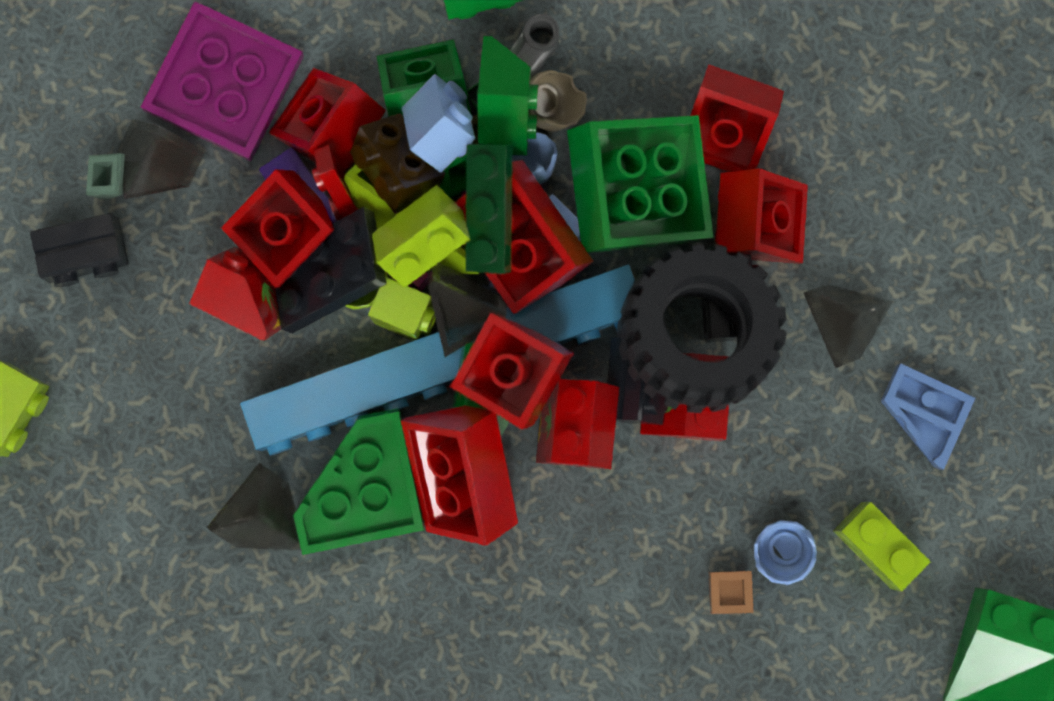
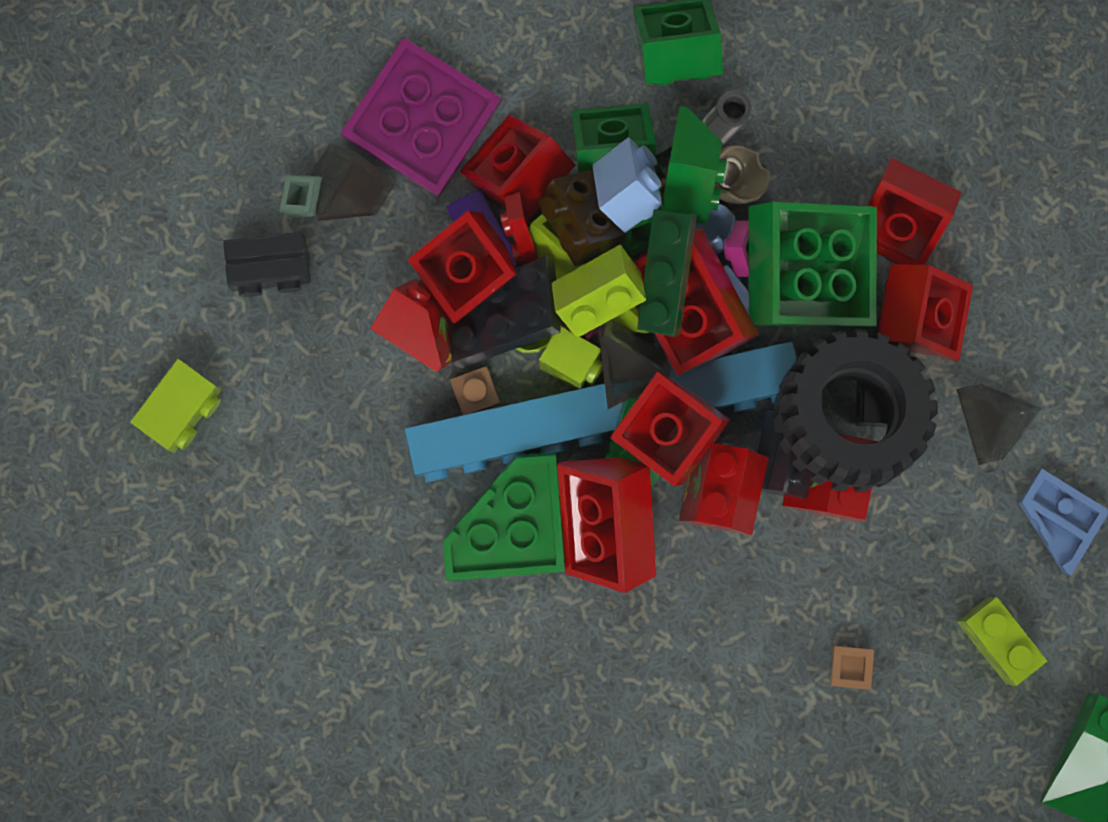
camera: 10 degrees right, 0 degrees up
(259, 514) = (409, 537): clear smoke slope -> none
(310, 355) = (475, 391): none -> medium nougat plate
(560, 175) = (737, 248): none -> dark pink plate
(794, 545) = (918, 631): light blue hair -> none

